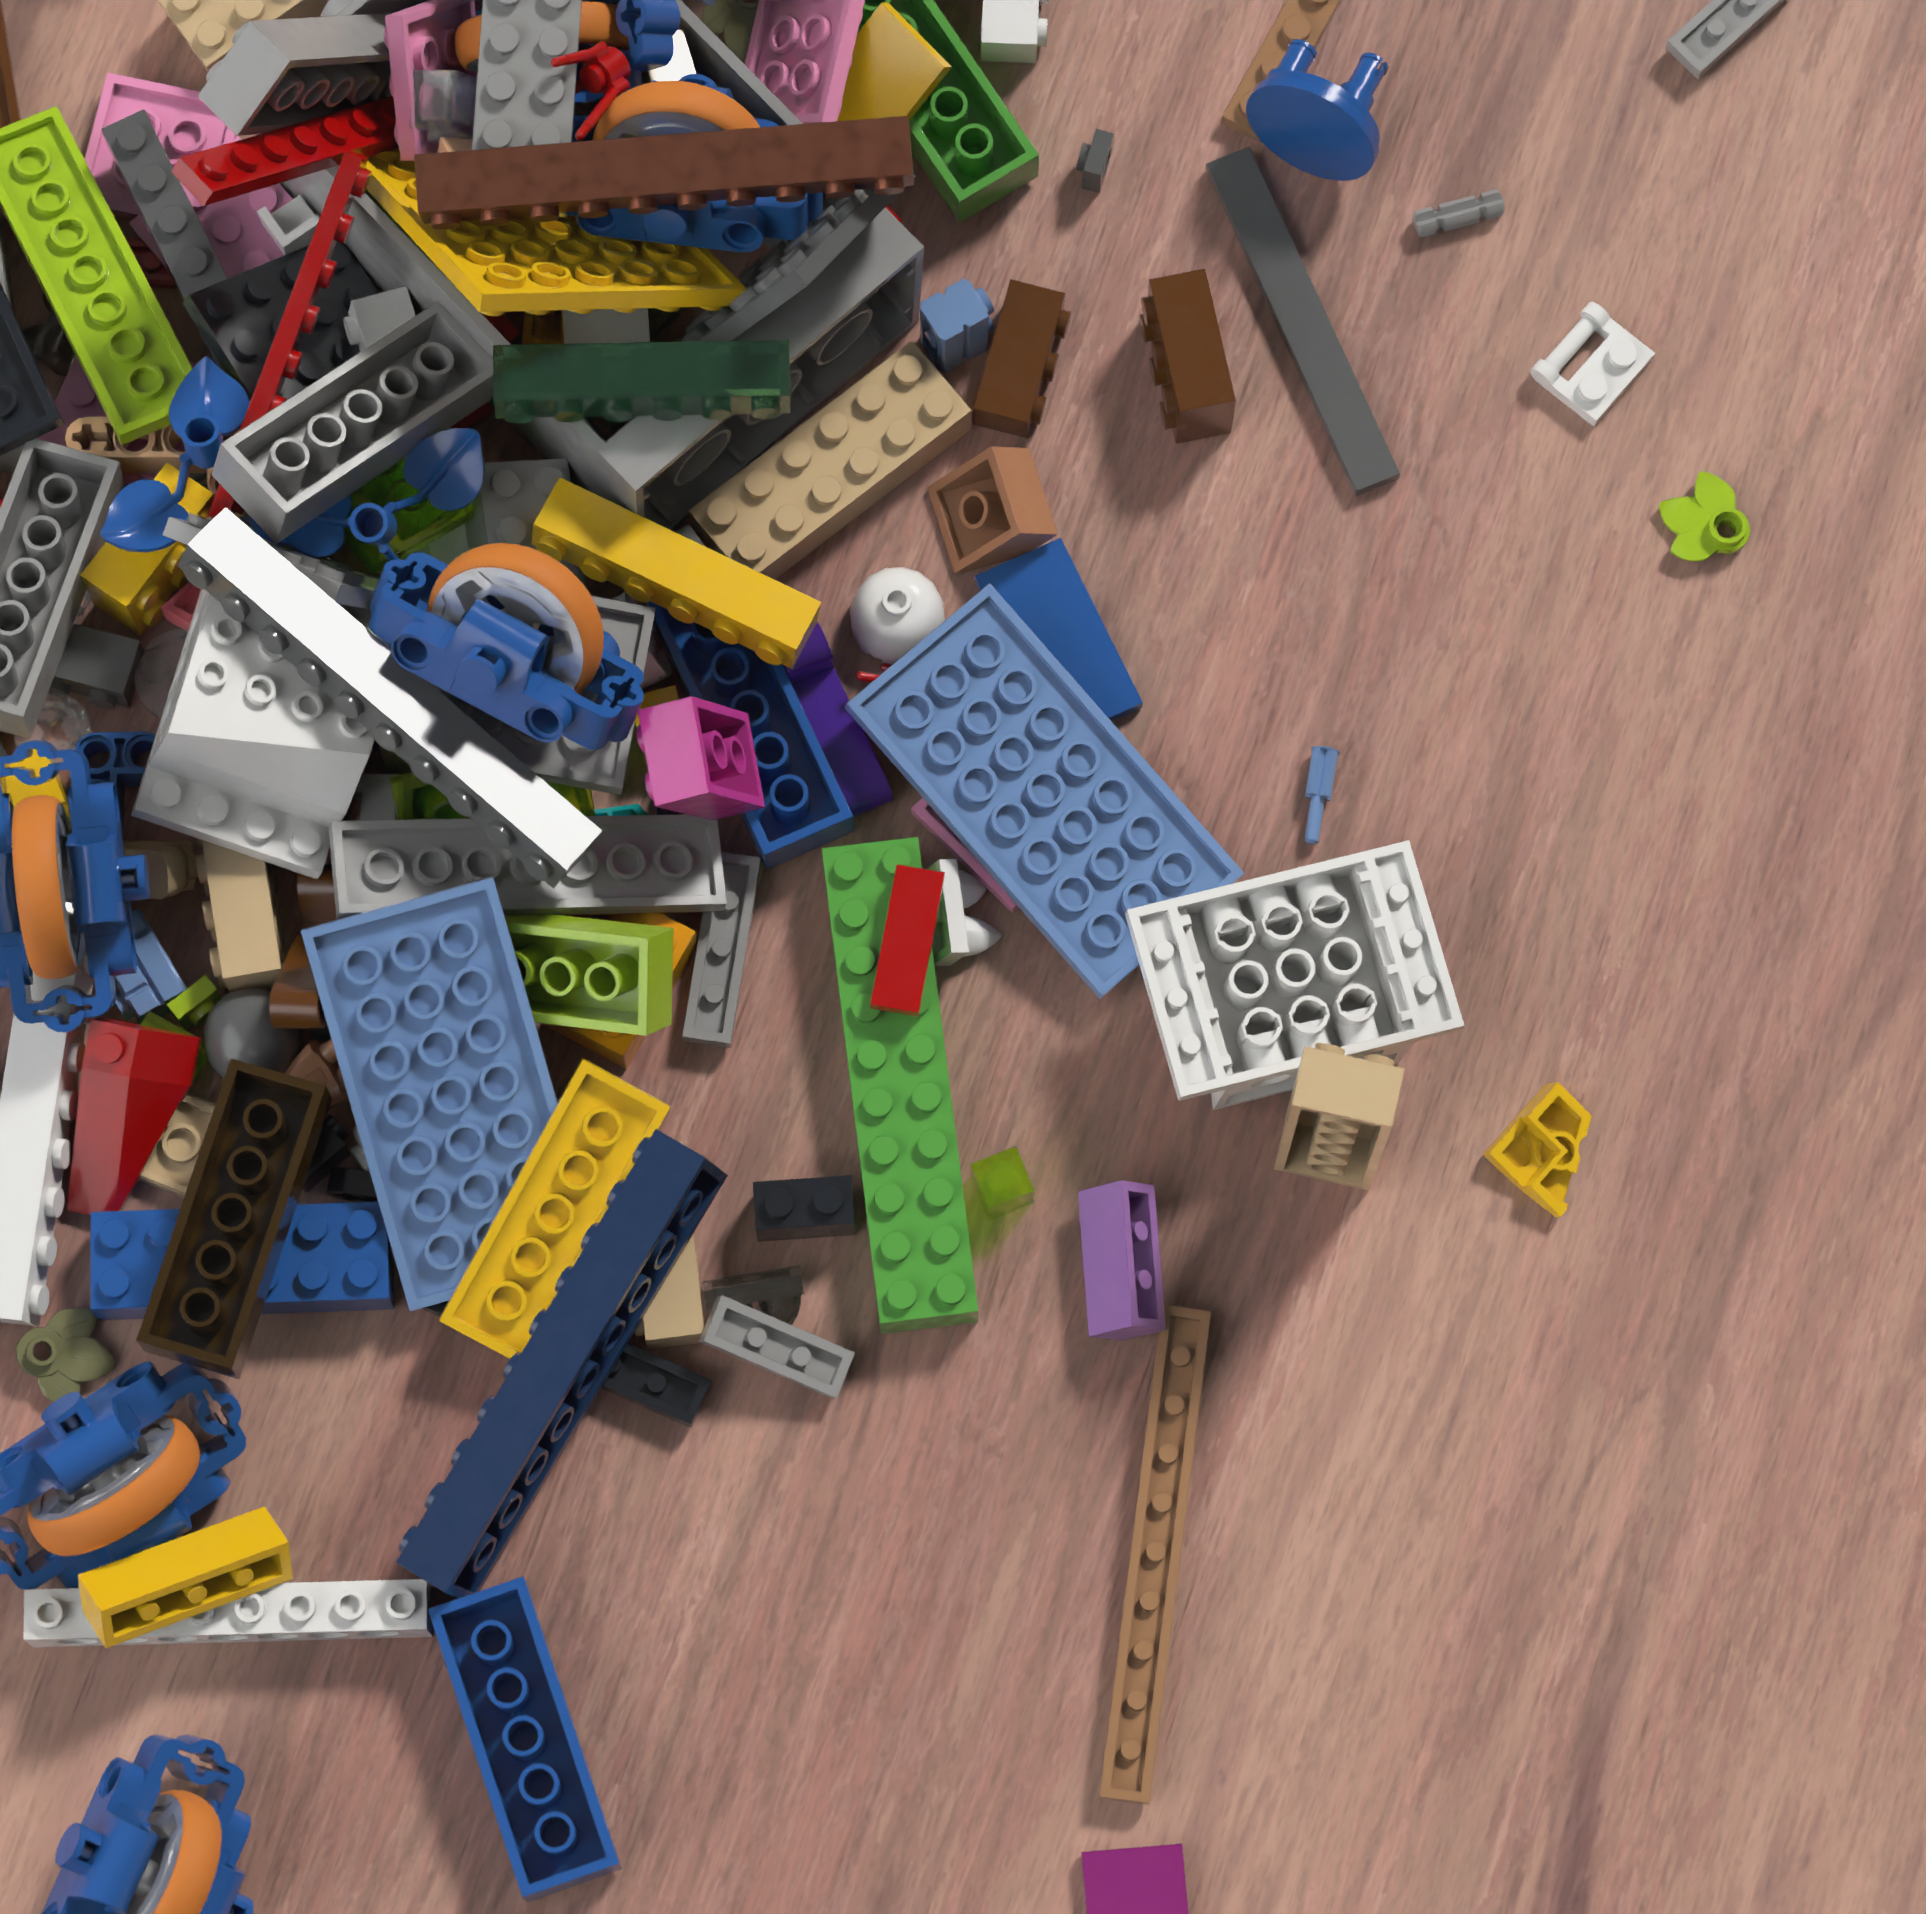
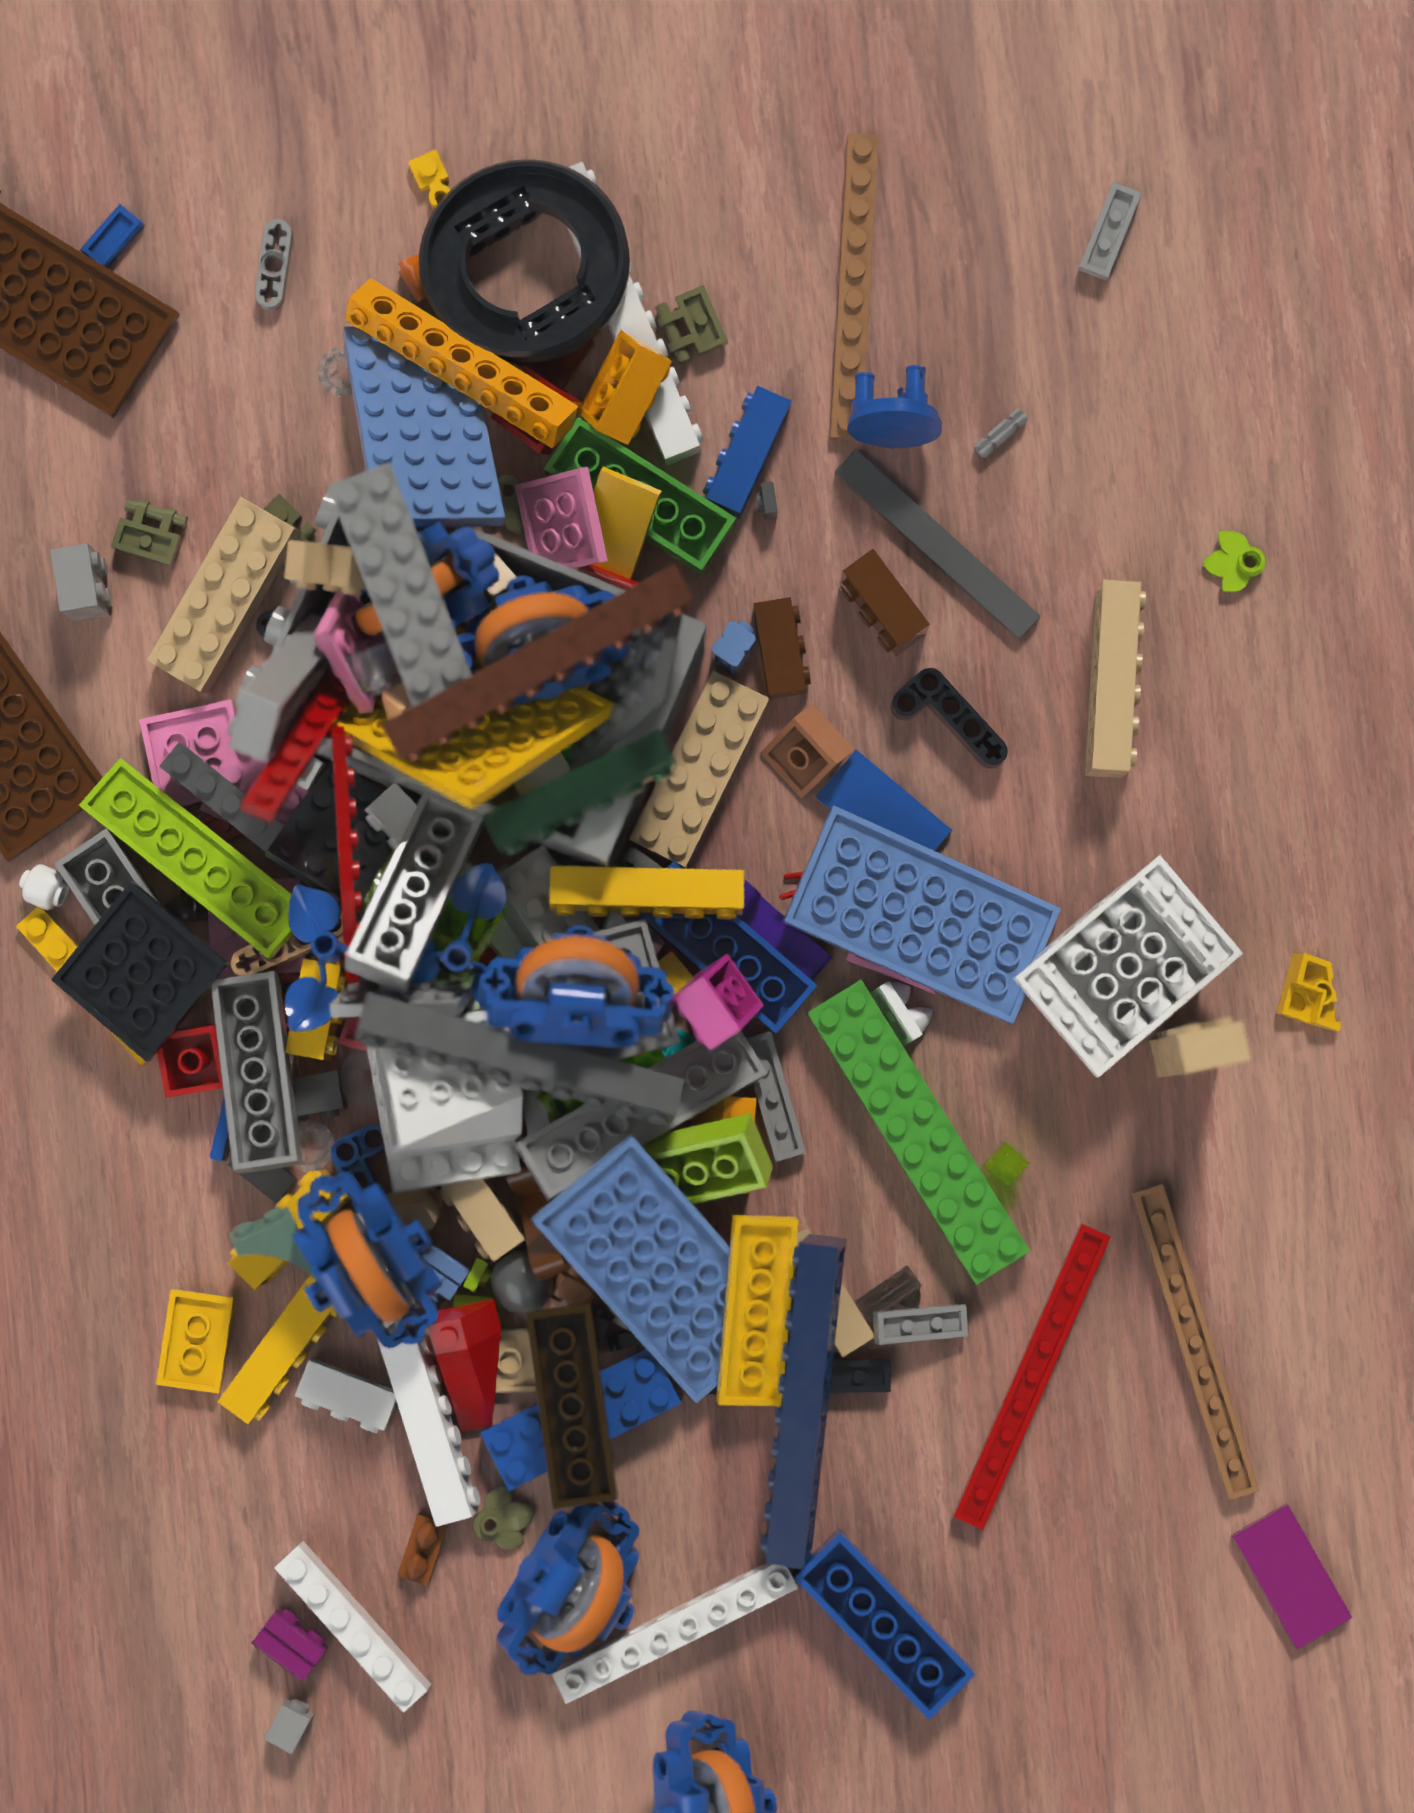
camera: 20 degrees left, 10 degrees up
(185, 1577) = (645, 1628): yellow brick -> none
(602, 72) = (464, 609): red plant -> none
(804, 1208) = (896, 1232): black brick -> none
(894, 612) = (780, 842): white cylinder -> none
(899, 1496) = (1031, 1376): none -> red plate
(907, 940) = (887, 1048): red tile -> none
(1101, 84) = (748, 451): none -> blue brick
(1121, 1260) = (1097, 1179): medium lavender brick -> none
(1214, 559) = (954, 722): none -> black beam
(1319, 788) = (1080, 834): medium blue axle -> none
(1457, 597) = (1114, 678): none -> tan brick
(1603, 375) = (1133, 495): white plate -> none

